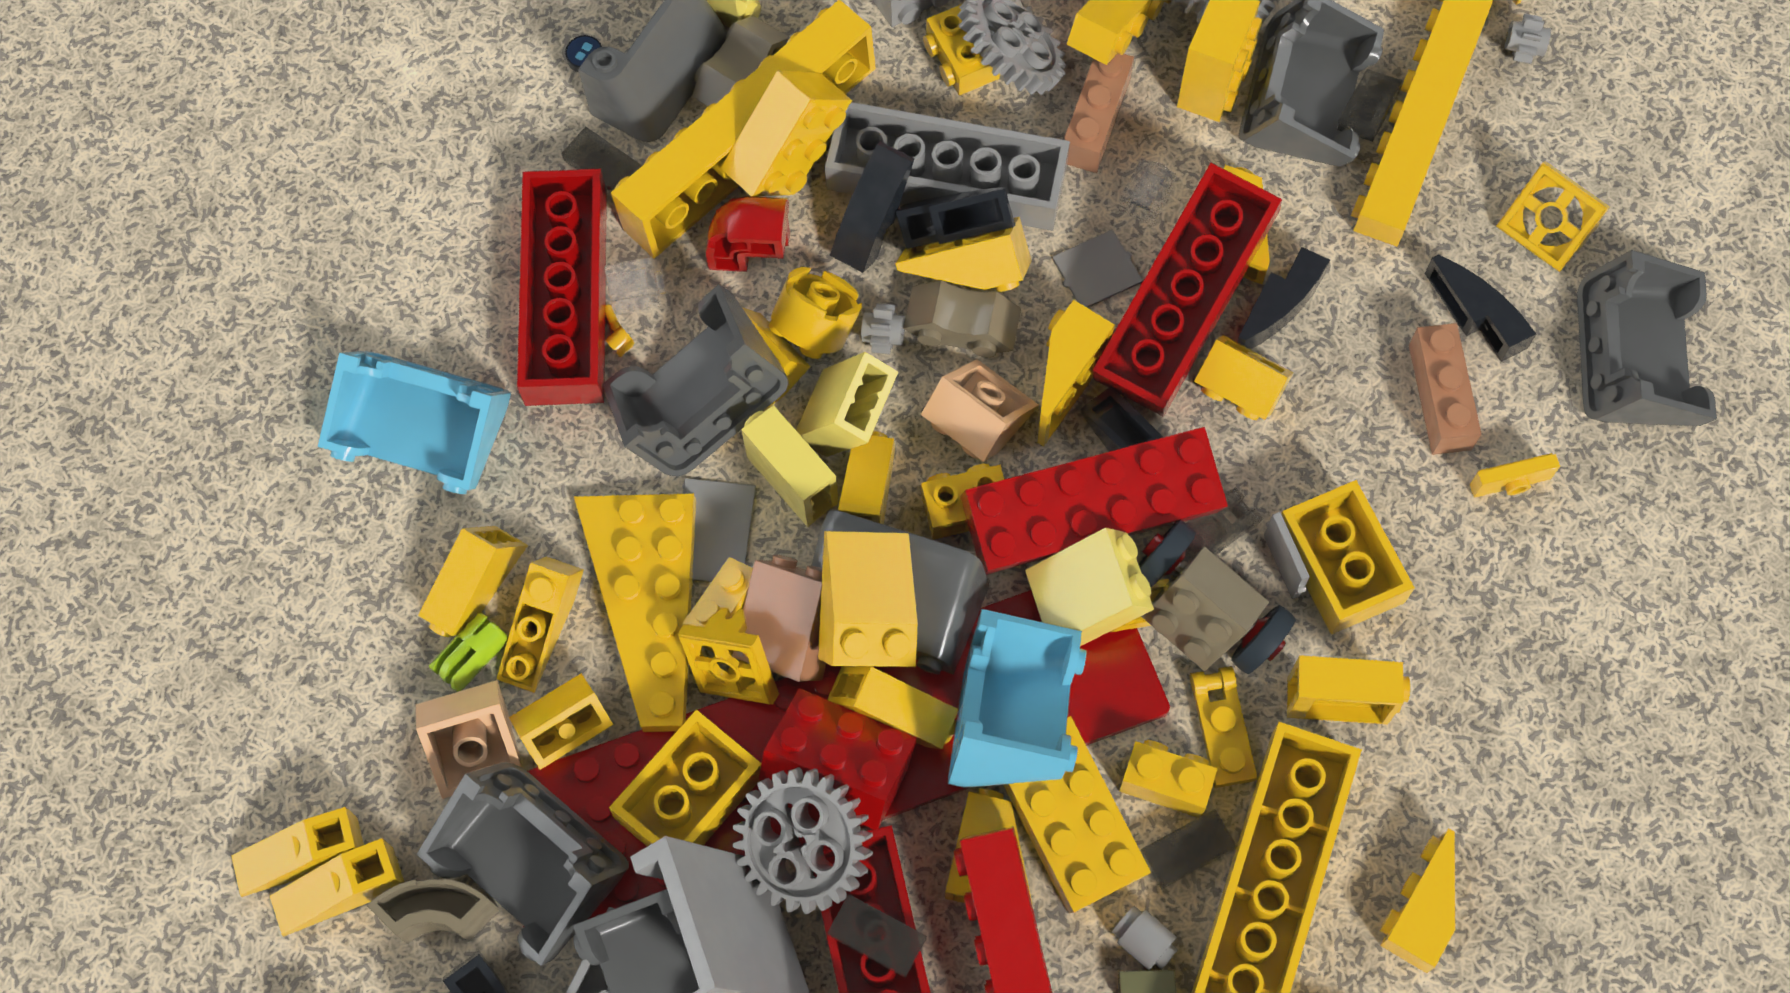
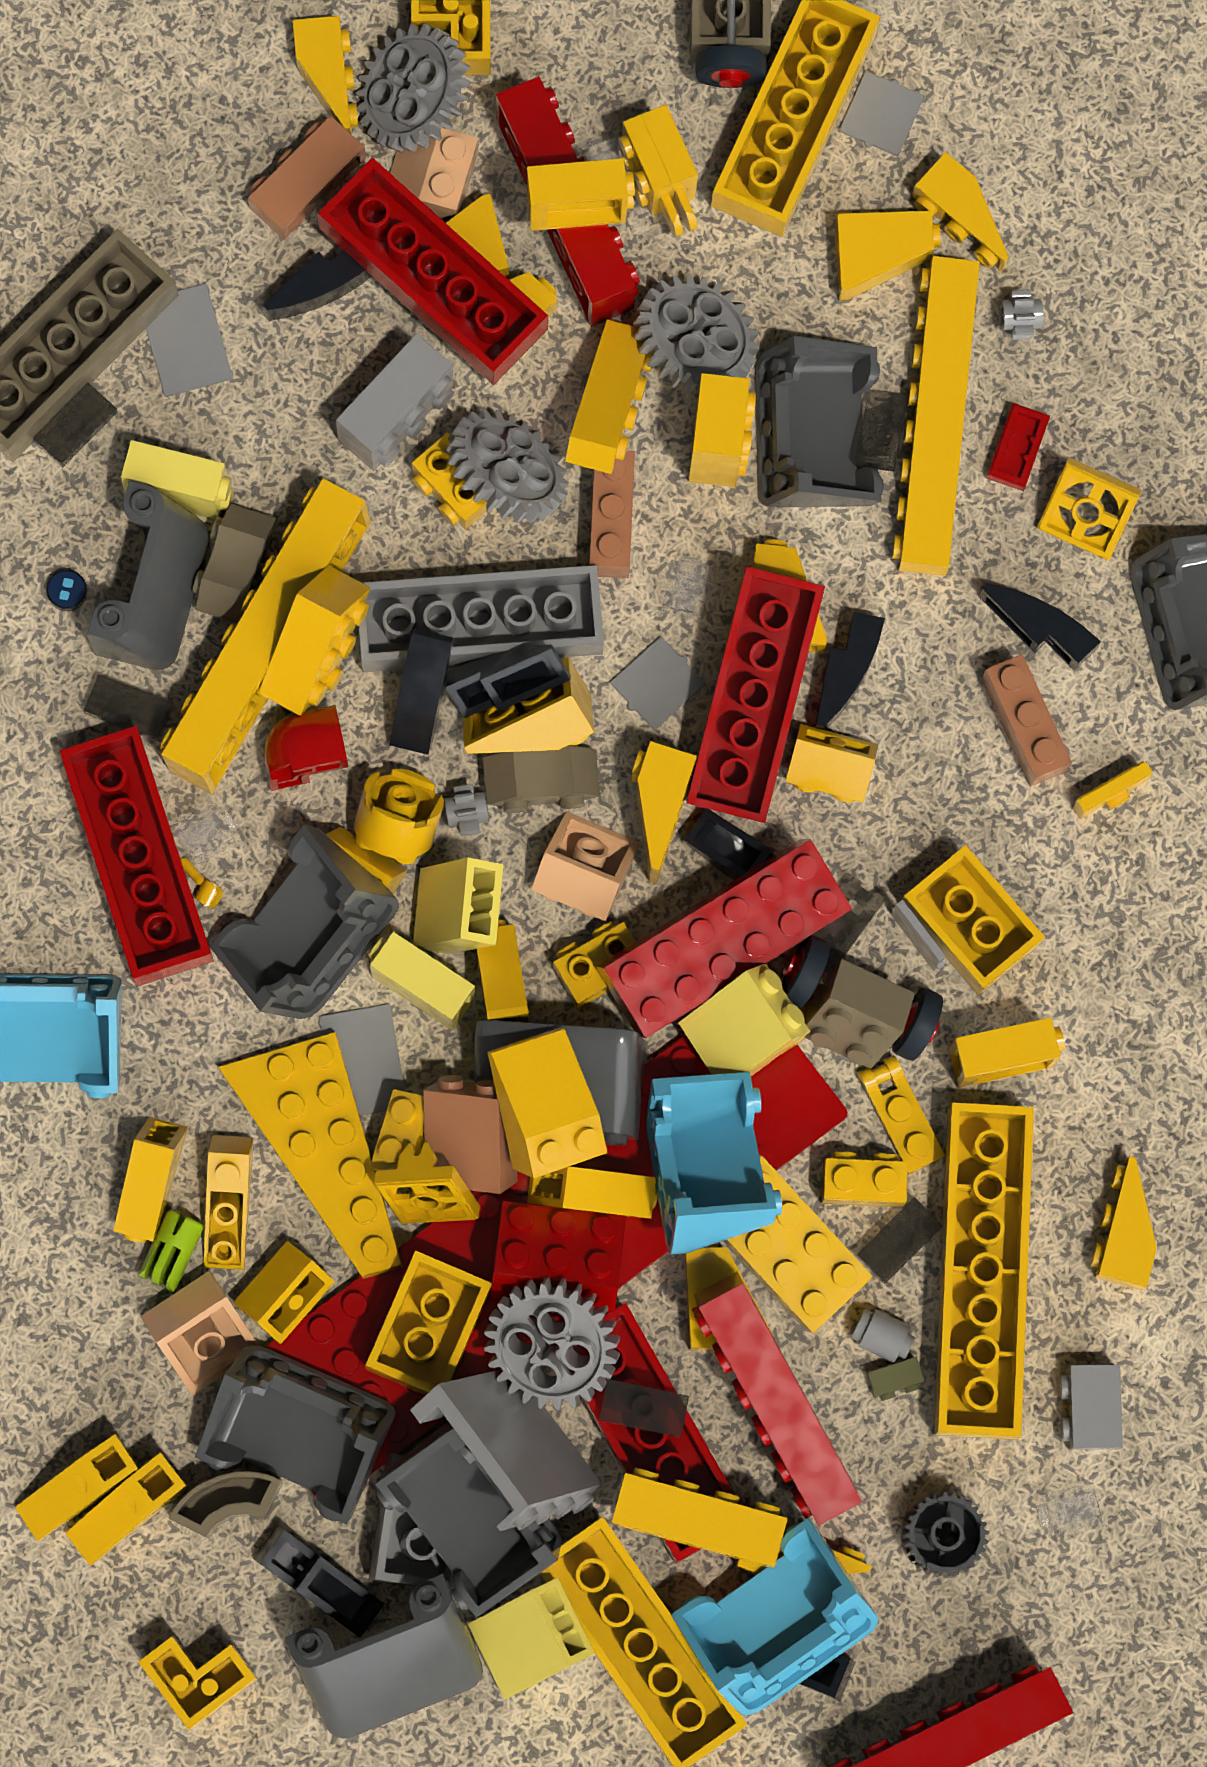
camera: 25 degrees left, 10 degrees up
(1496, 151) = (1018, 447): none -> red plate

